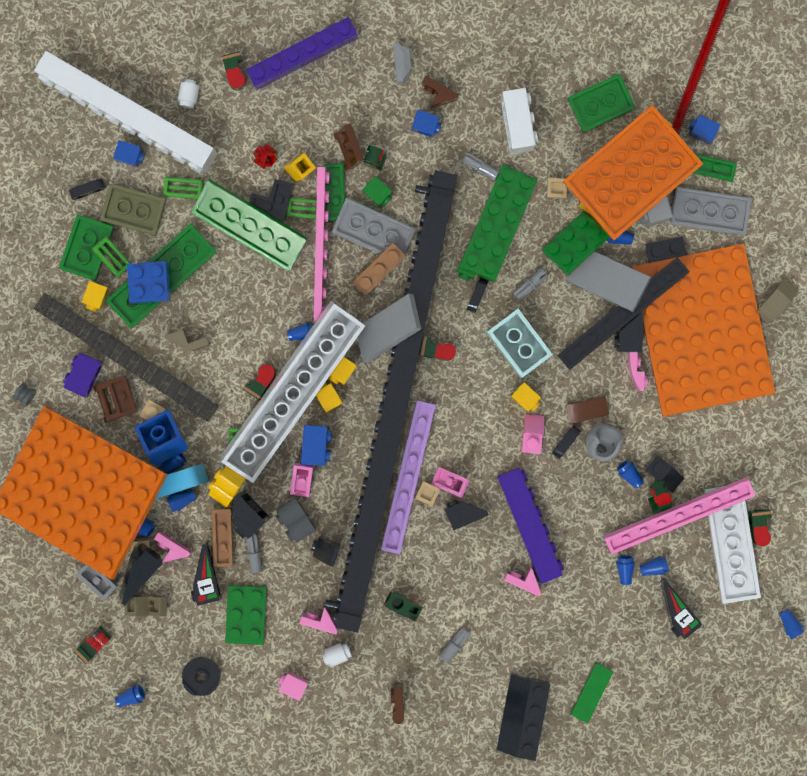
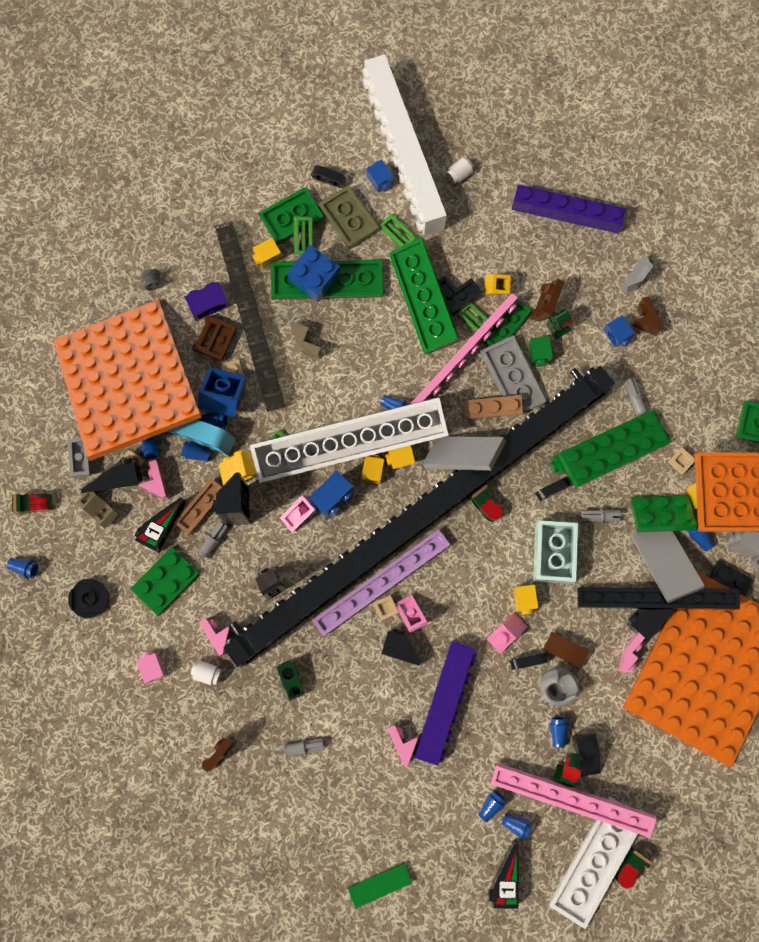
camera: 40 degrees right, 10 degrees down
(235, 77) = (504, 186): leg -> none
(265, 156) = (478, 257): red gear -> none
(265, 377) = (331, 416): leg -> none
(295, 520) = (266, 541): dark grey brick -> none
(518, 121) = (694, 385): white brick -> none
(523, 717) = (307, 856): black slope -> none

